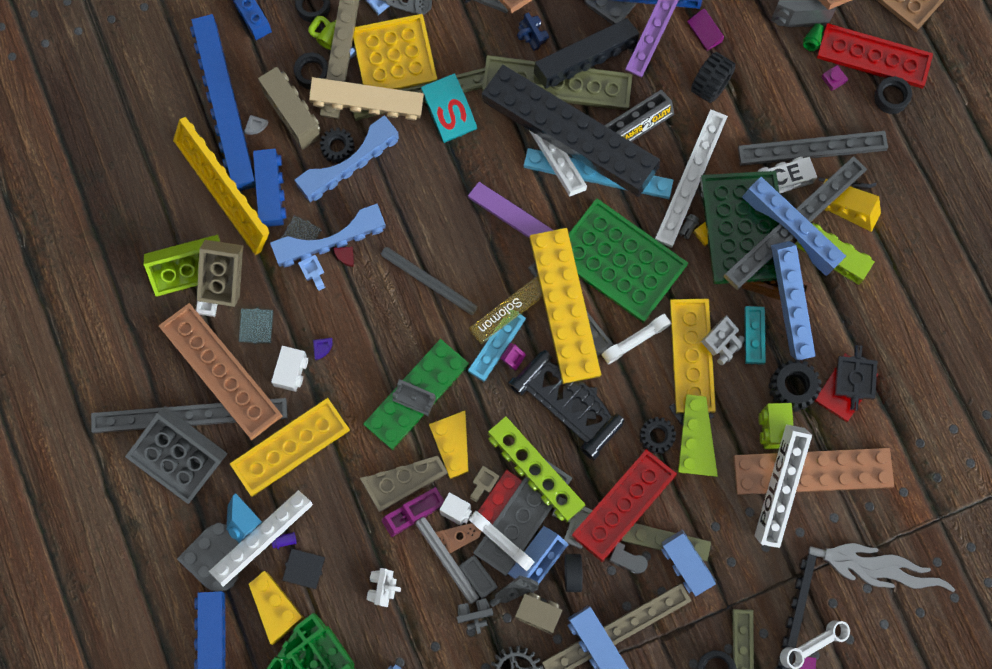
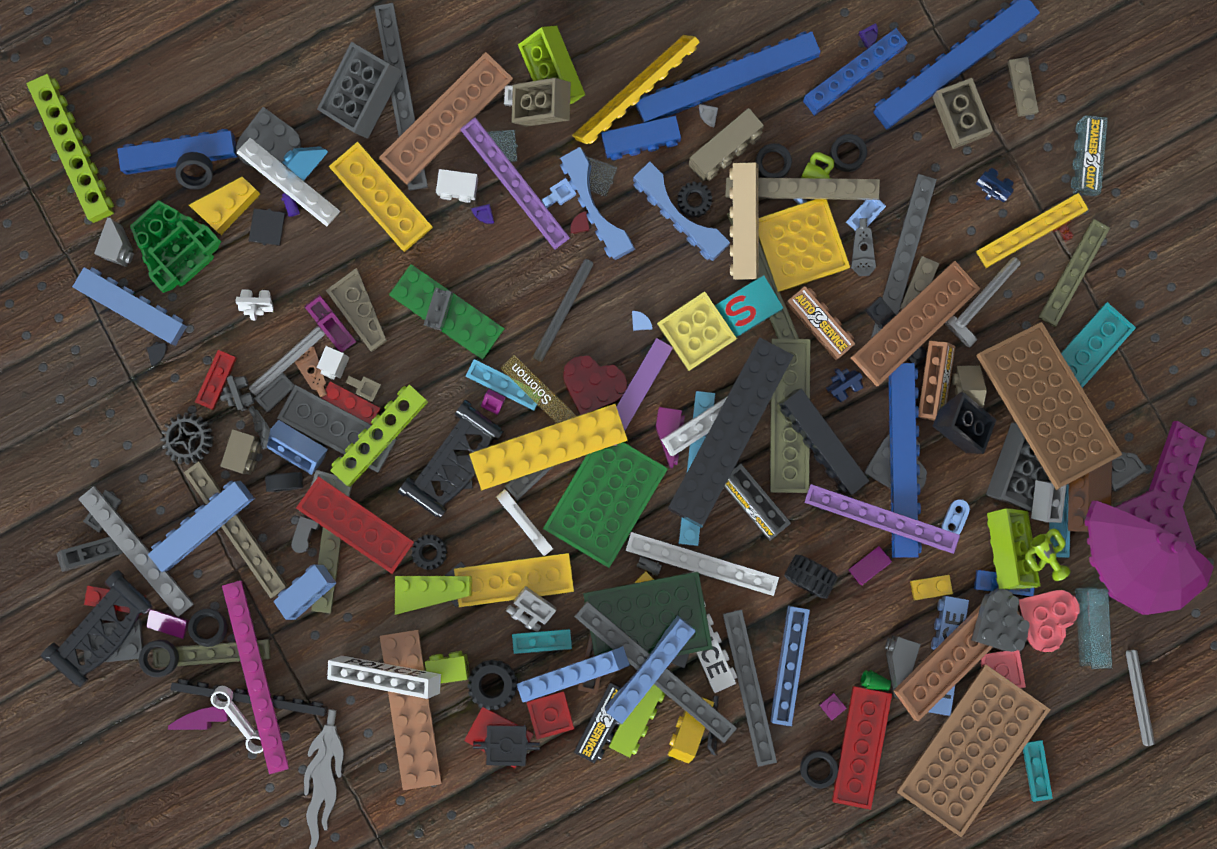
camera: 85 degrees right, 10 degrees up
(246, 635) = (194, 182): none -> black tyre
(295, 312) = (514, 183): none -> medium lavender tile
(449, 209) = (640, 321): none -> light blue tile
(452, 443) = (402, 352): yellow wing -> none
(458, 637) = (215, 380): none -> red plate
(466, 158) = (696, 331): none -> light yellow plate
(472, 46) = (820, 322): none -> brick
(501, 540) = (321, 390): white piece -> none
(507, 260) = (592, 385): none -> dark red plate
(554, 195) = (667, 422): none -> magenta slope
(772, 622) = (255, 677): none -> dark pink plate
(795, 108) = (789, 666): none -> medium blue brick
(829, 334) = (550, 715): none -> red plate
(841, 288) = (598, 729): none -> brick

